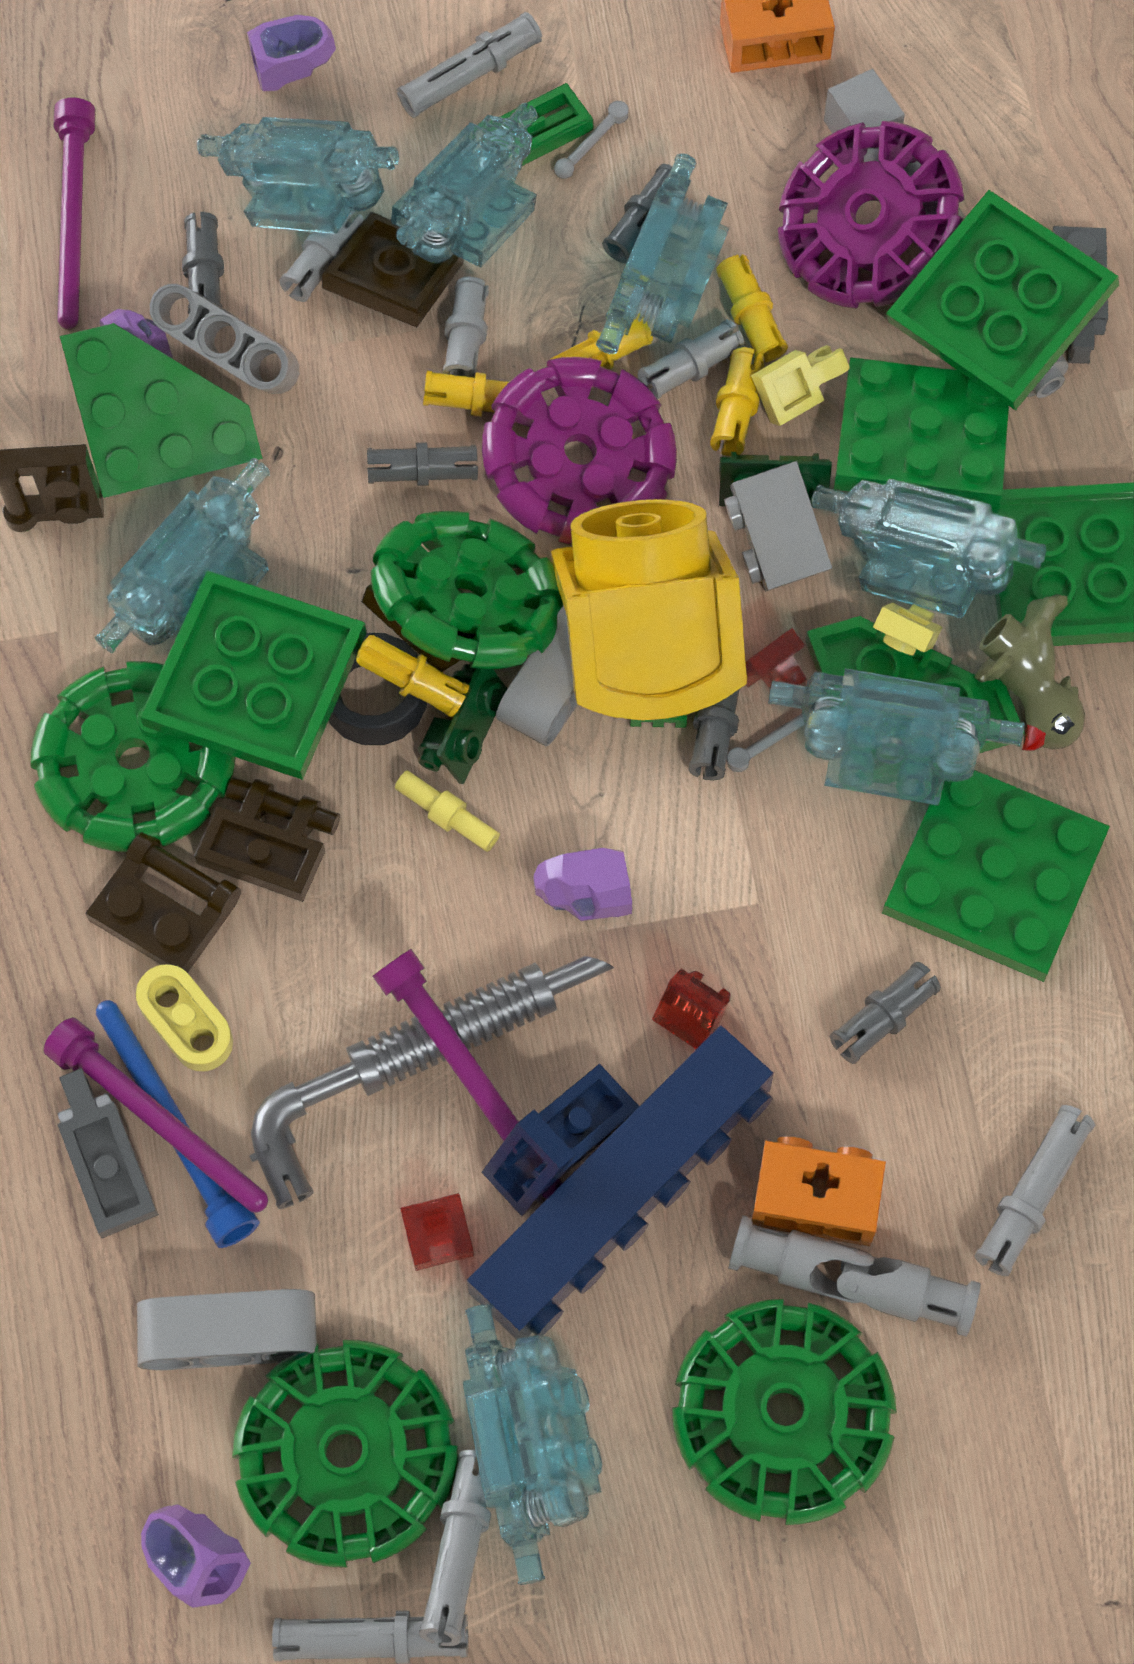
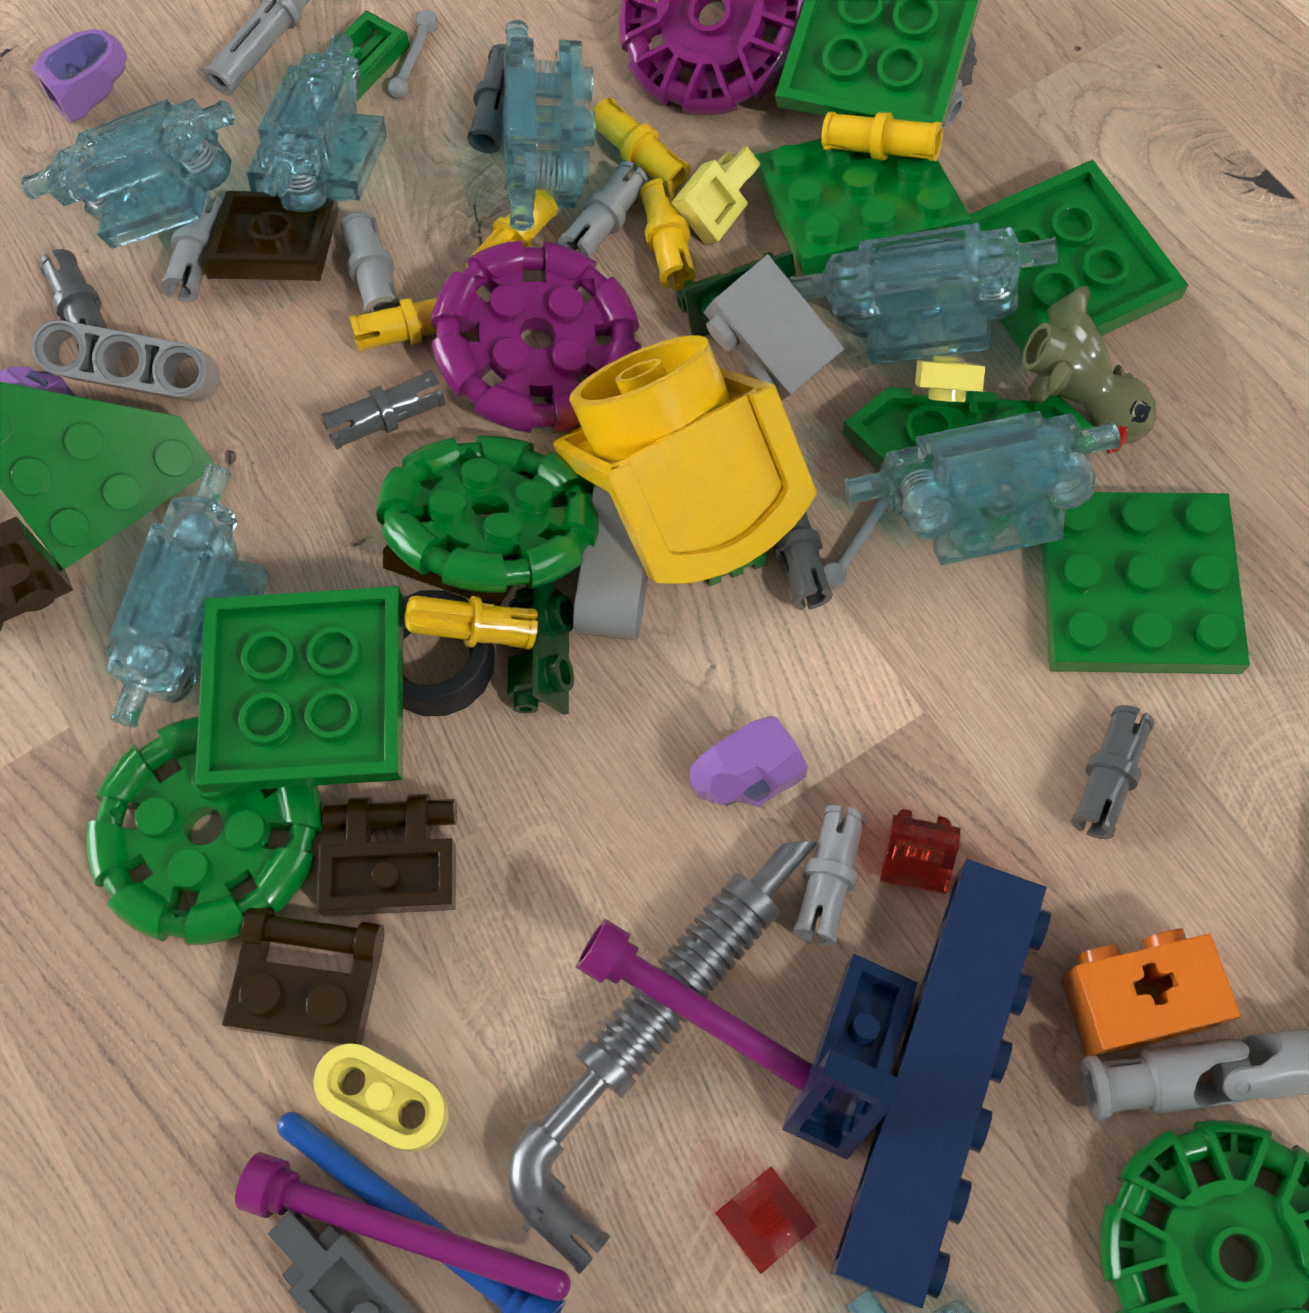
camera: 20 degrees left, 0 degrees up
(447, 811) = (566, 748): light yellow bar -> none
(611, 997) = (830, 876): none -> light grey pin
(777, 662) = (832, 462): clear red tile -> none
(960, 389) = (882, 136): none -> yellow pin

